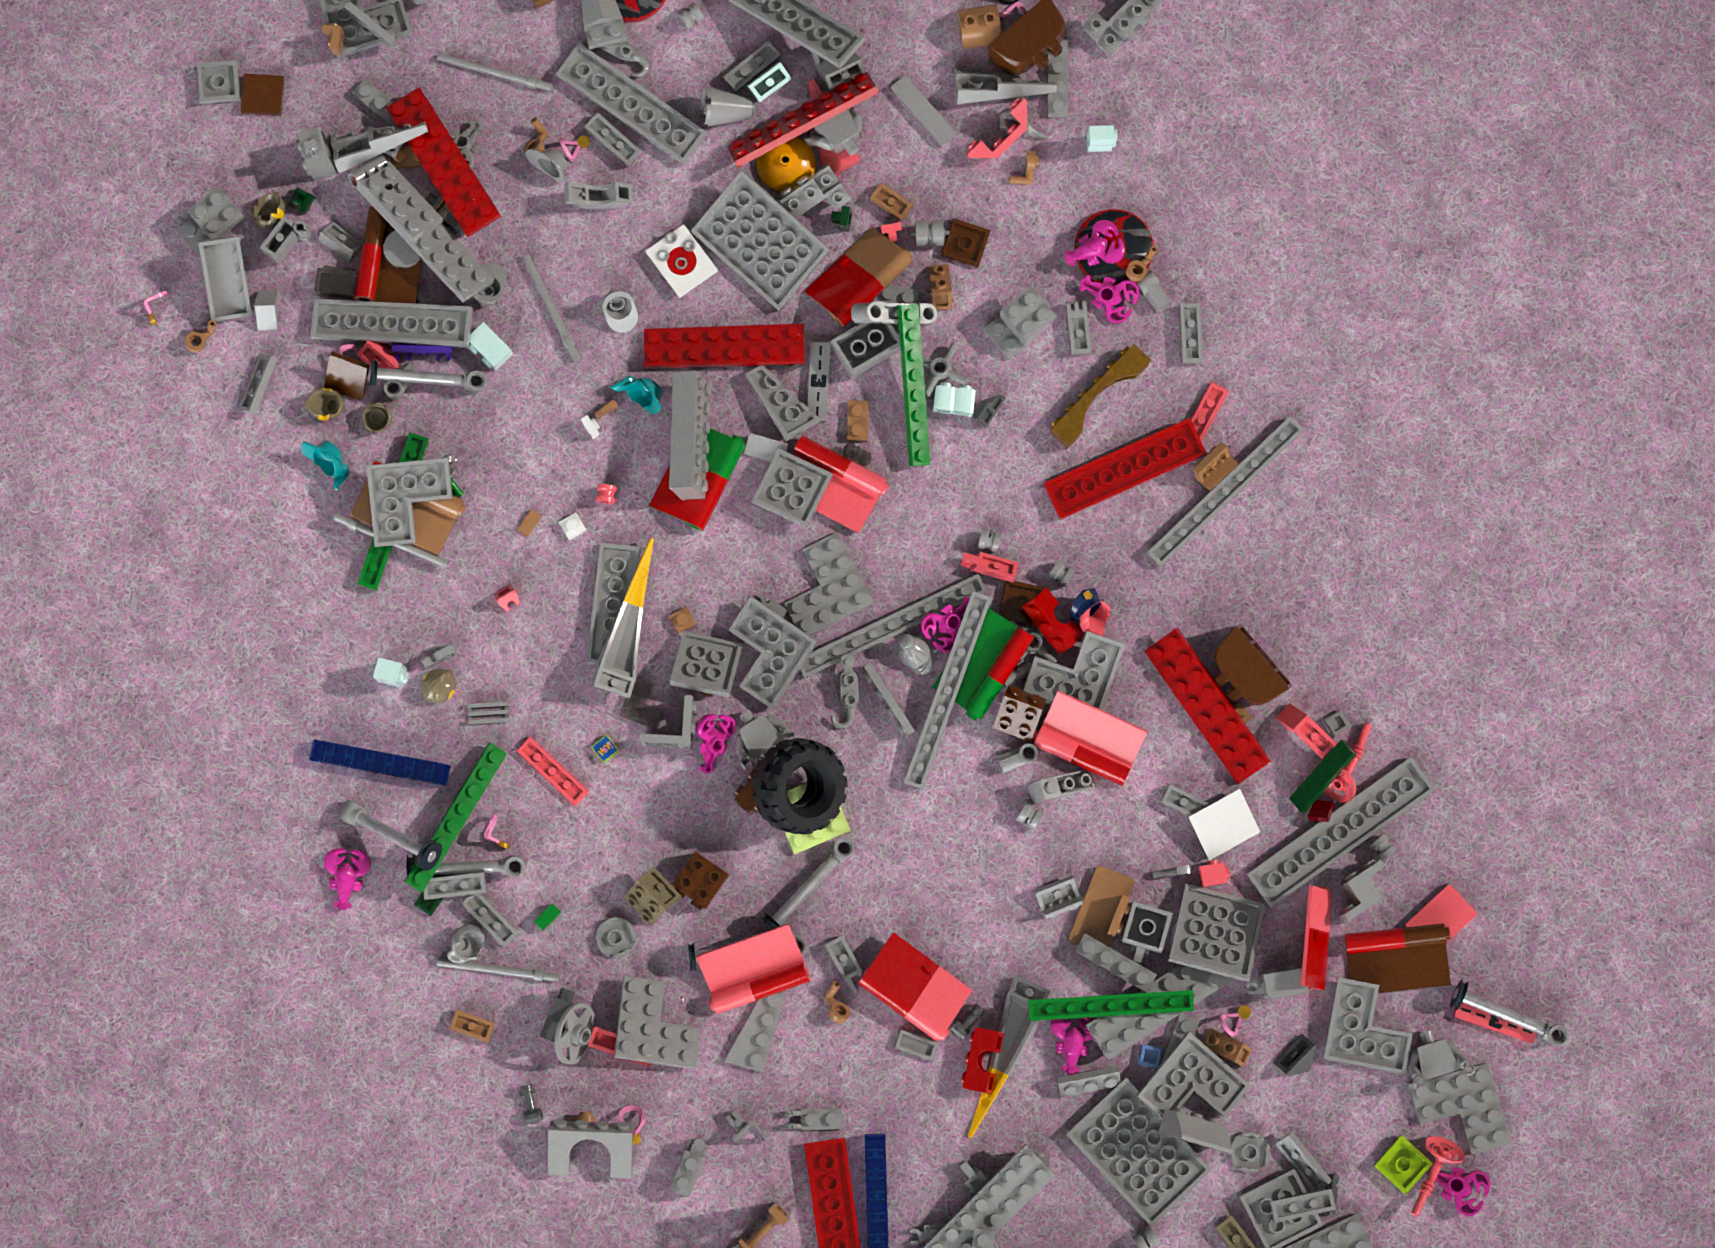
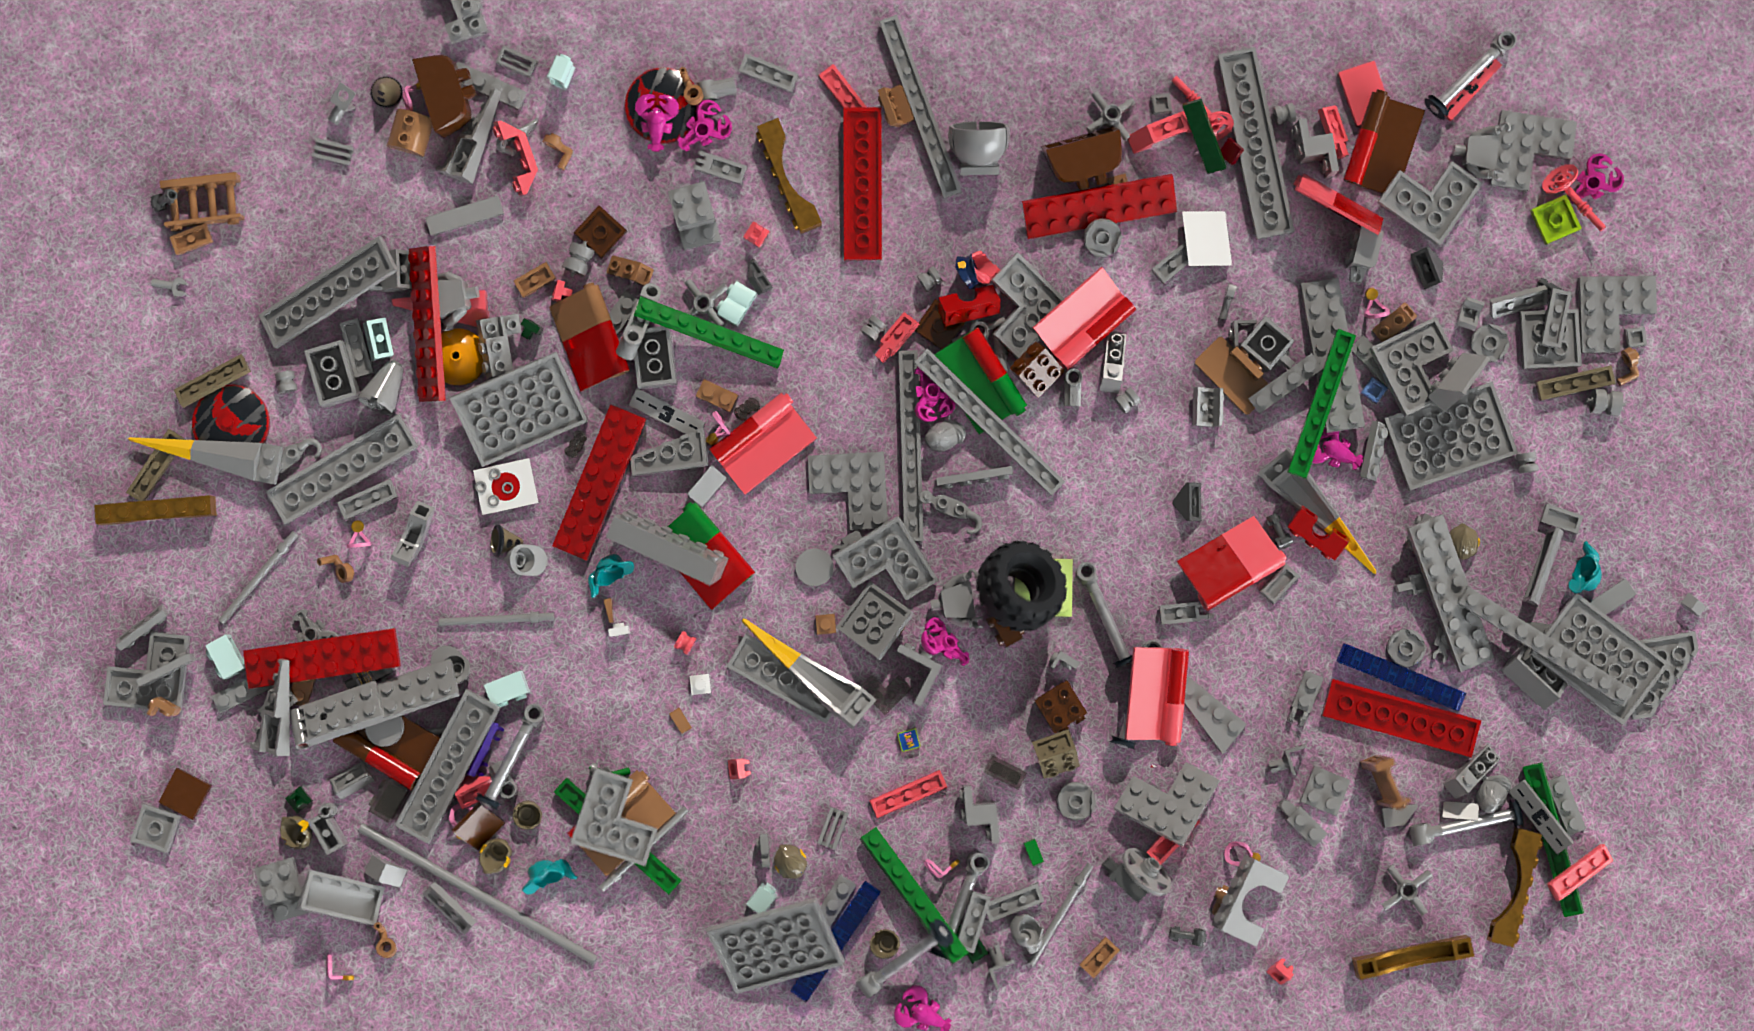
camera: 65 degrees left, 5 degrees up
(282, 405) = (477, 893): none -> light grey piece
(316, 153) = (262, 767): light grey hinge -> none
(350, 703) = (775, 945): none -> light grey plate
(392, 815) = (890, 944): none -> dark tan hair
(404, 743) = (837, 898): none -> light grey plate
(407, 74) = (225, 656): none -> light aqua brick
(424, 930) = (999, 962): none -> light grey bracket
(532, 1212) = (1280, 972): none -> coral tile
(550, 162) = (363, 563): light grey piece -> none
(562, 846) = (979, 813): none -> light grey bracket
(613, 854) = (1005, 772): none -> clear smoke piece
(629, 281) = (503, 540): none -> hat
(716, 54) = (332, 374): none -> light grey brick
(731, 1179) = (1325, 790): none -> light grey plate
(733, 585) = (814, 567): none -> light grey tile
(747, 869) = (1067, 661): none -> light grey bracket
(751, 308) = (575, 444): none -> clear smoke piece
(792, 488) = (753, 478): light grey plate -> none
(816, 435) = (714, 437): none -> bright pink piece
(838, 1011) = (1223, 637): medium nougat plate -> none
(902, 1198) = (1406, 647): none -> light grey tile
(957, 921) = (1189, 502): none -> dark grey slope
(1030, 390) = (756, 234): none -> coral tile
(1039, 1211) = (1465, 541): none -> dark tan hair
(1093, 111) = (530, 68): none -> light grey tile
(1143, 890) = (1233, 332): none -> light grey bracket
(1178, 722) = (1102, 237): none -> light grey tile
(1208, 563) = (979, 149): none -> light grey plate
(1213, 873) = (1244, 267): coral brick -> none
(1216, 932) = (1296, 286): light grey plate -> none
(1269, 1118) = (1469, 313): none -> light grey bracket
(1294, 678) = (1113, 109): none -> light grey bar
(1391, 903) = (1333, 124): none -> coral hinge

